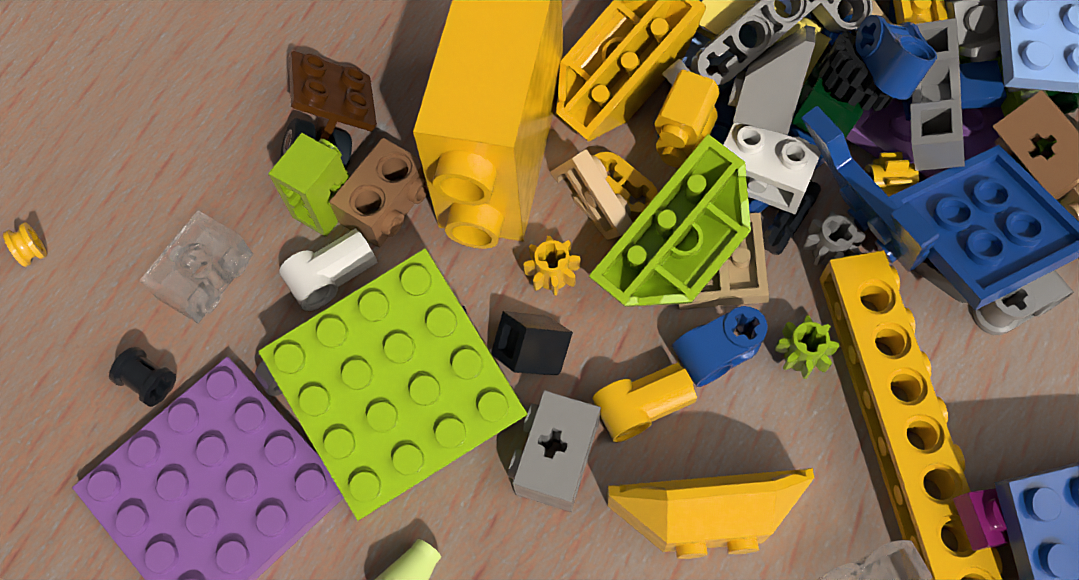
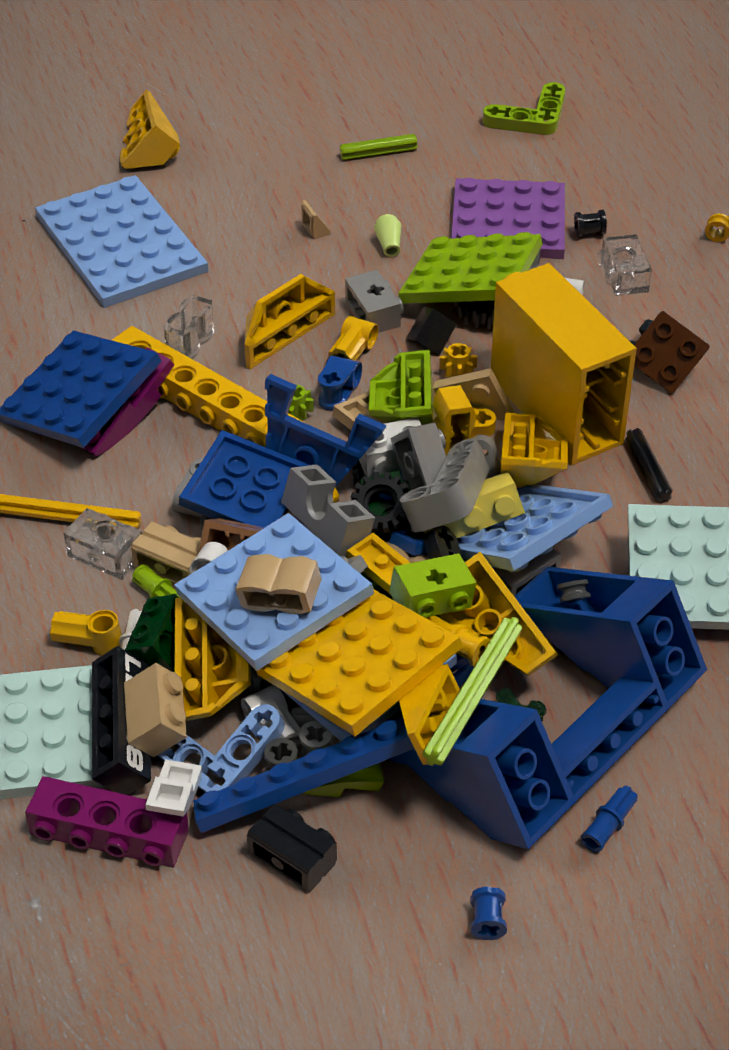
camera: 135 degrees right, 20 degrees down
(308, 180) = (614, 300): lime brick -> none
(894, 55) = (371, 488): blue piece -> none

